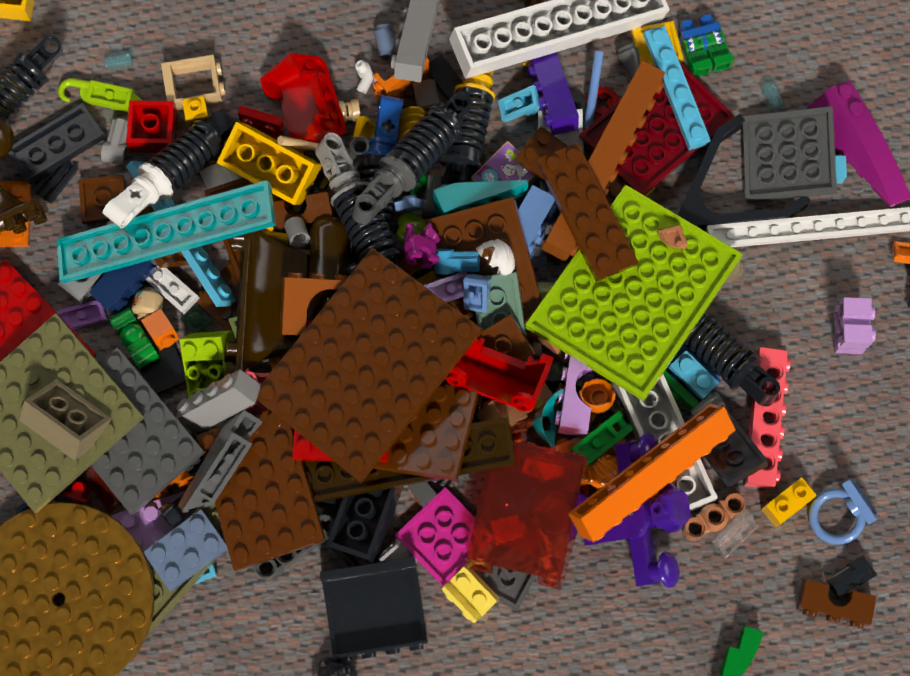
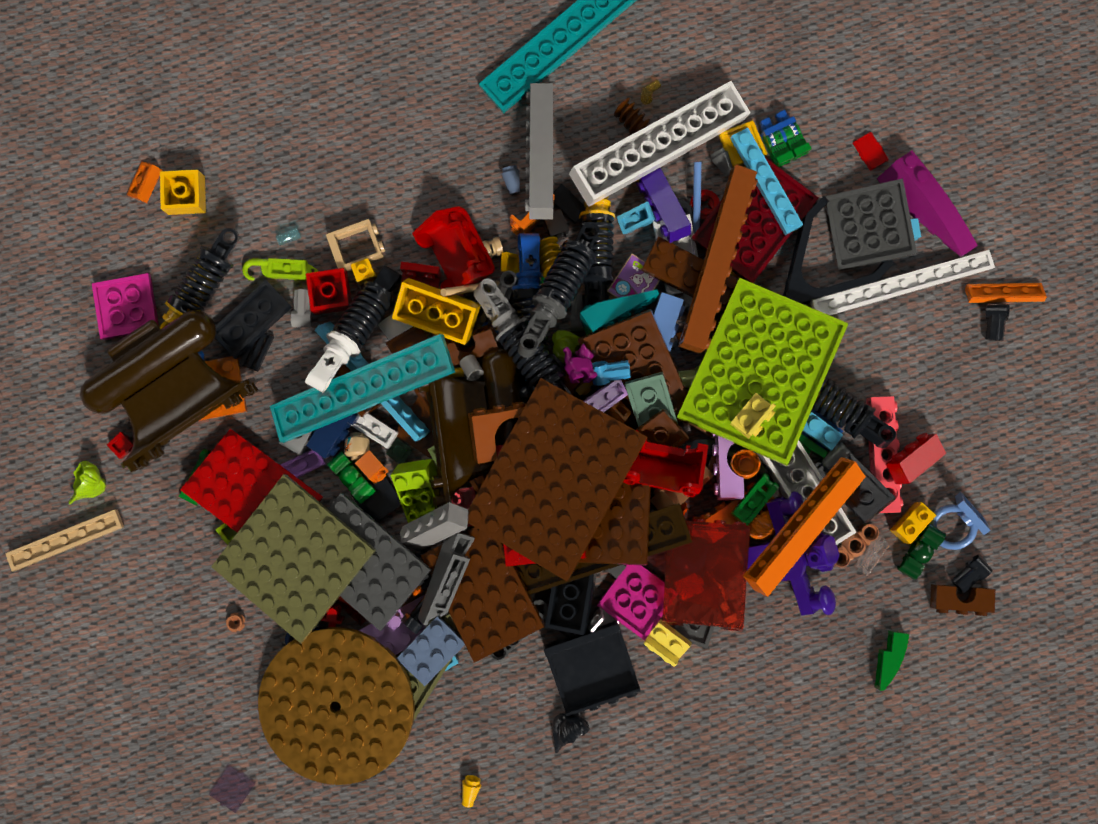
camera: 10 degrees left, 10 degrees up
(64, 419) = (310, 566): dark tan slope -> none
(96, 194) = (298, 359): reddish brown plate -> none
(366, 75) = (501, 212): white arm -> none
(409, 204) = (562, 323): light blue plate -> none
(477, 292) = (632, 395): medium blue slope -> none
(499, 255) = (646, 362): white hair -> none
(547, 409) = (709, 506): teal piece -> none
(587, 212) = (713, 310): reddish brown plate -> none
(612, 336) = (752, 415): none -> light yellow bracket
(673, 237) = (788, 318): nougat tile -> none
(772, 95) = (847, 173): clear light blue pin -> none
(794, 538) = (921, 551): none -> dark green piece
(802, 425) = (915, 458): none -> brick
(804, 76) = (870, 151): none -> red piece
(854, 325) = (945, 365): lavender brick -> none

